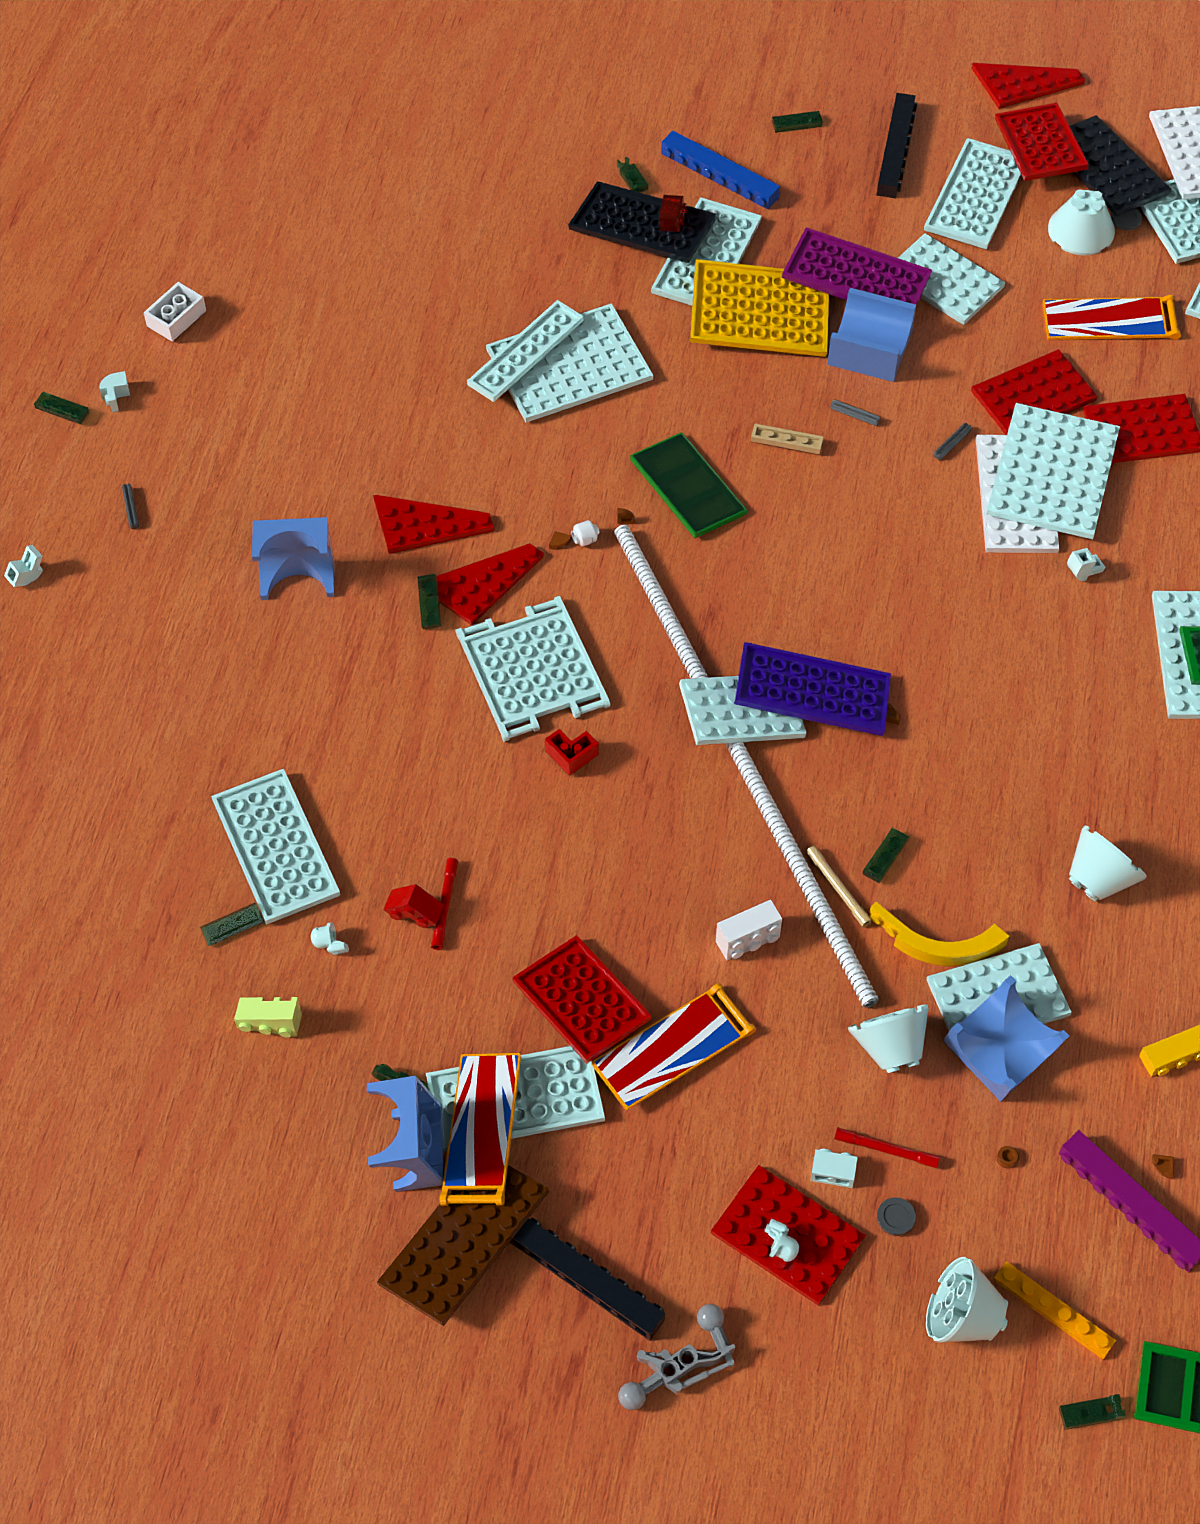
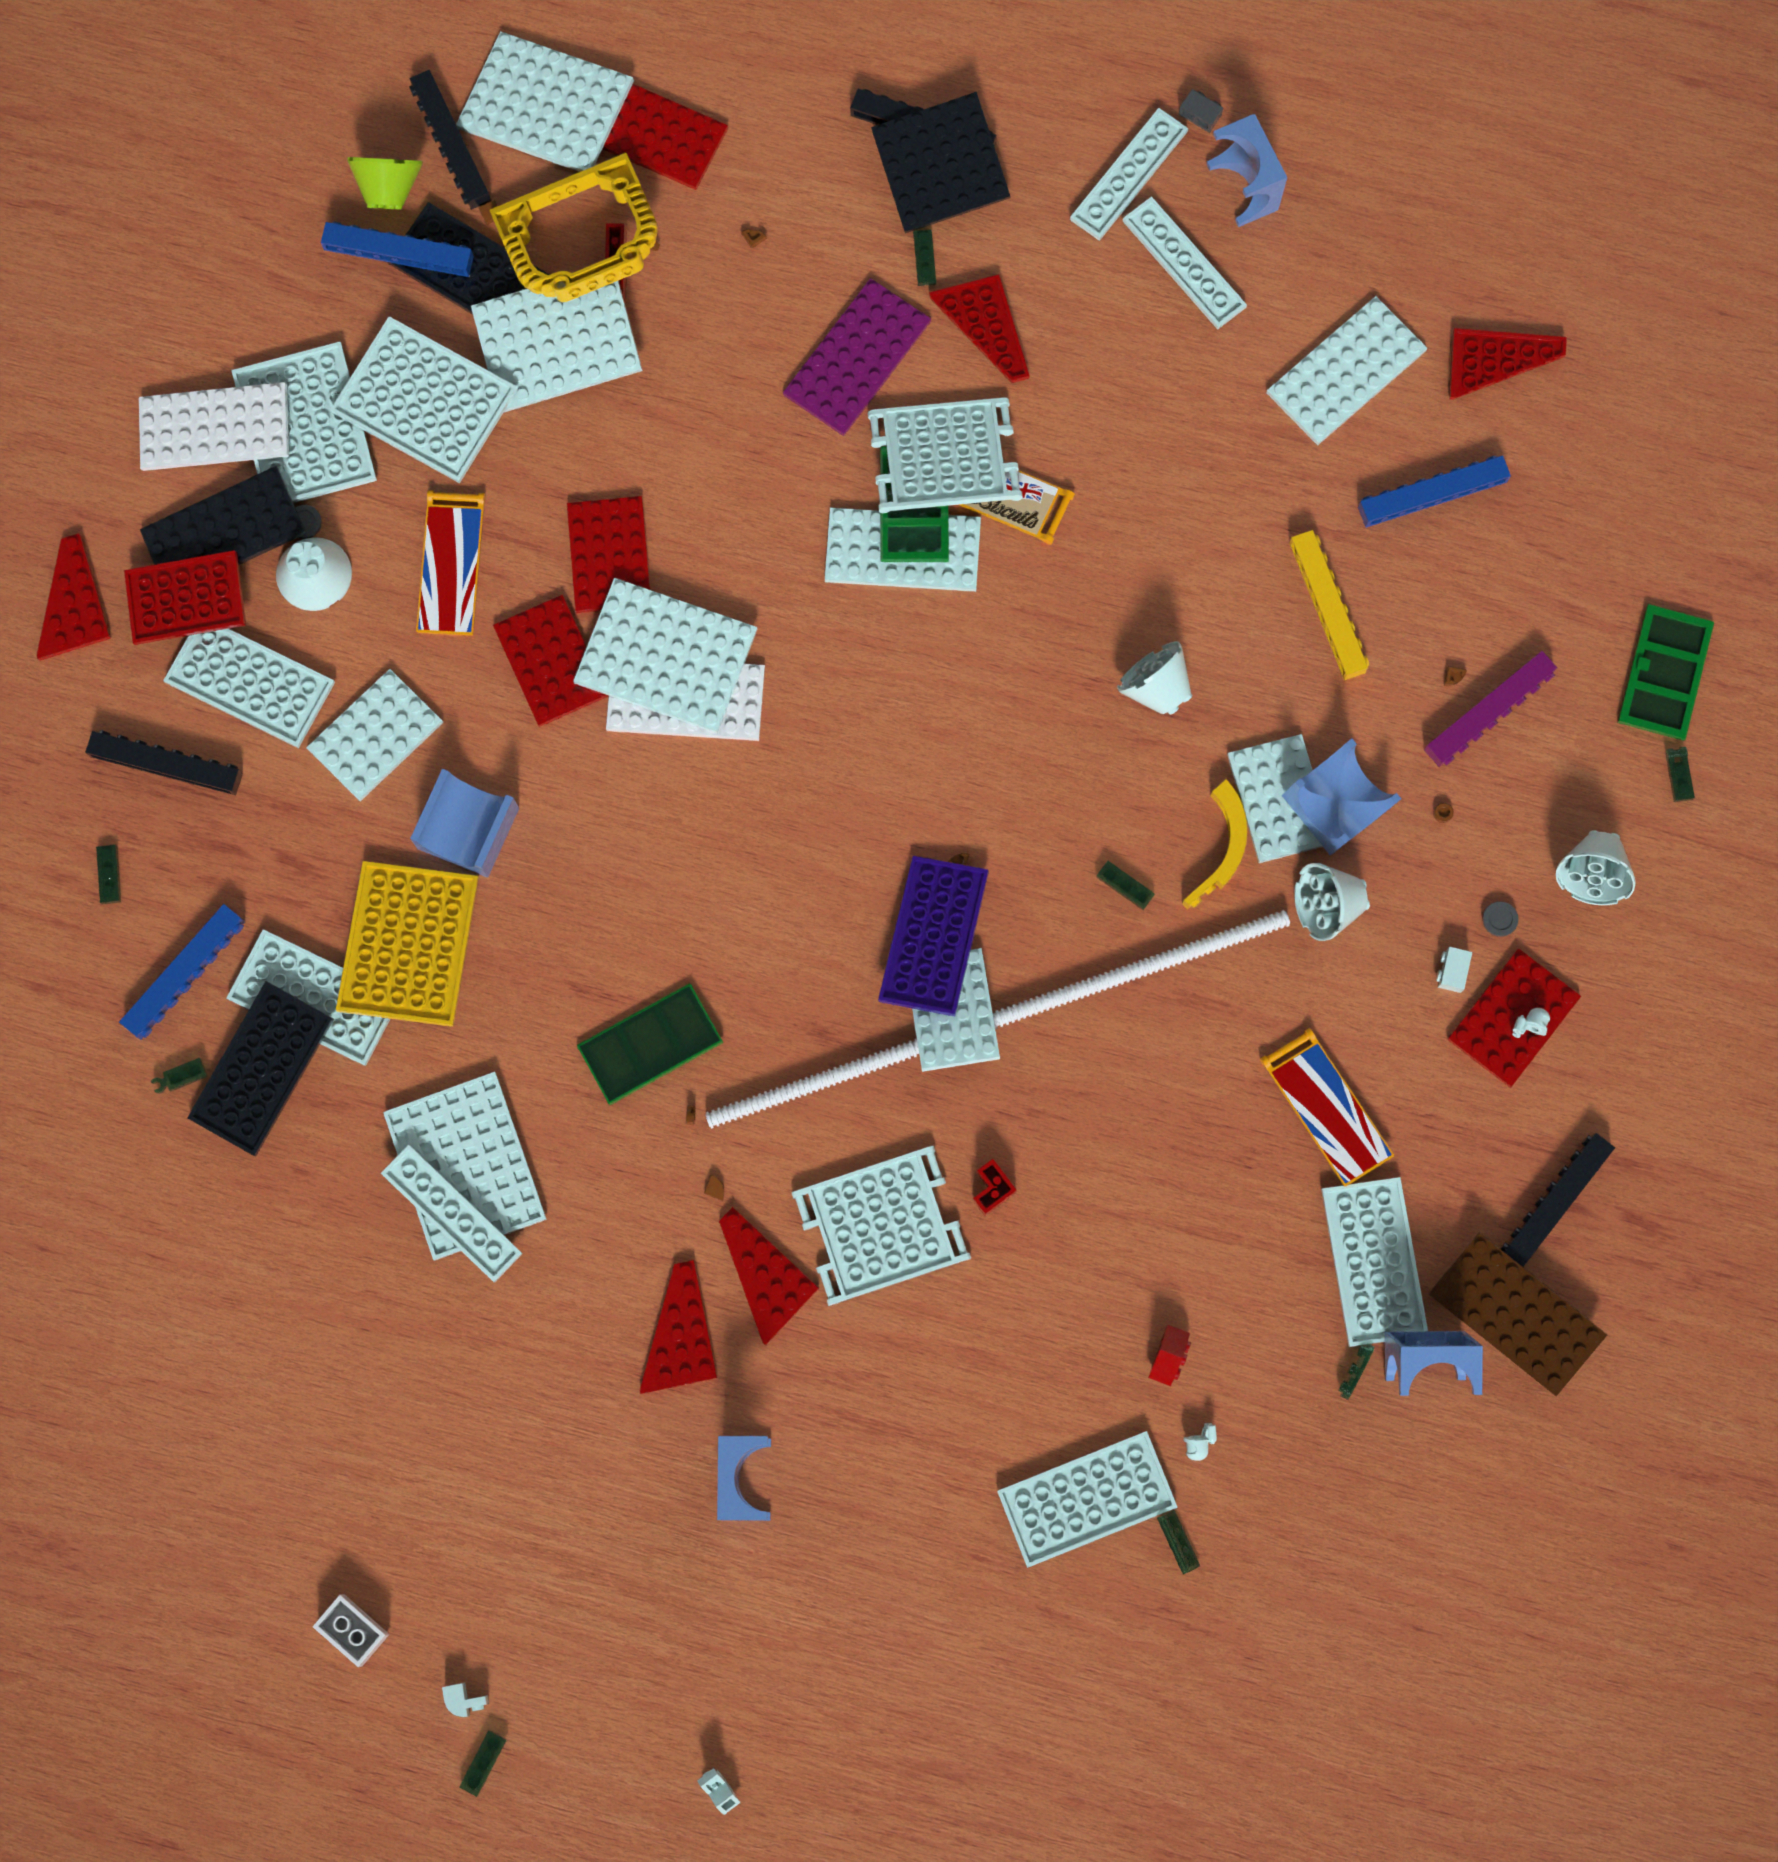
camera: 85 degrees left, 20 degrees up
(130, 506) = (633, 1673): dark grey axle -> none
(269, 1016) = (1285, 1502): yellowish green wedge -> none
(429, 601) = (792, 1332): clear green plate -> none
(439, 932) = (1127, 1319): red piece -> none
(481, 1127) = (1412, 1292): flag -> none
(581, 999) = (1276, 1192): red plate -> none
(585, 533) = (712, 1159): white head -> none
(672, 212) = (264, 1031): clear red brick -> none
(710, 1318) = (1597, 1094): light grey piece -> none
(748, 930) = (1211, 1024): white brick -> none
(787, 438) = (595, 931): tan plate -> none
(838, 265) = (370, 830): magenta plate -> none
(855, 412) = (562, 854): dark grey axle -> none
(858, 912) = (1129, 949): tan piece -> none
(919, 1157) = (1422, 949): red piece -> none
(952, 441) = (611, 755): dark grey axle -> none
(1054, 1310) = (1588, 793): light orange plate -> none
(1084, 564) = (791, 641): light aqua brick -> none

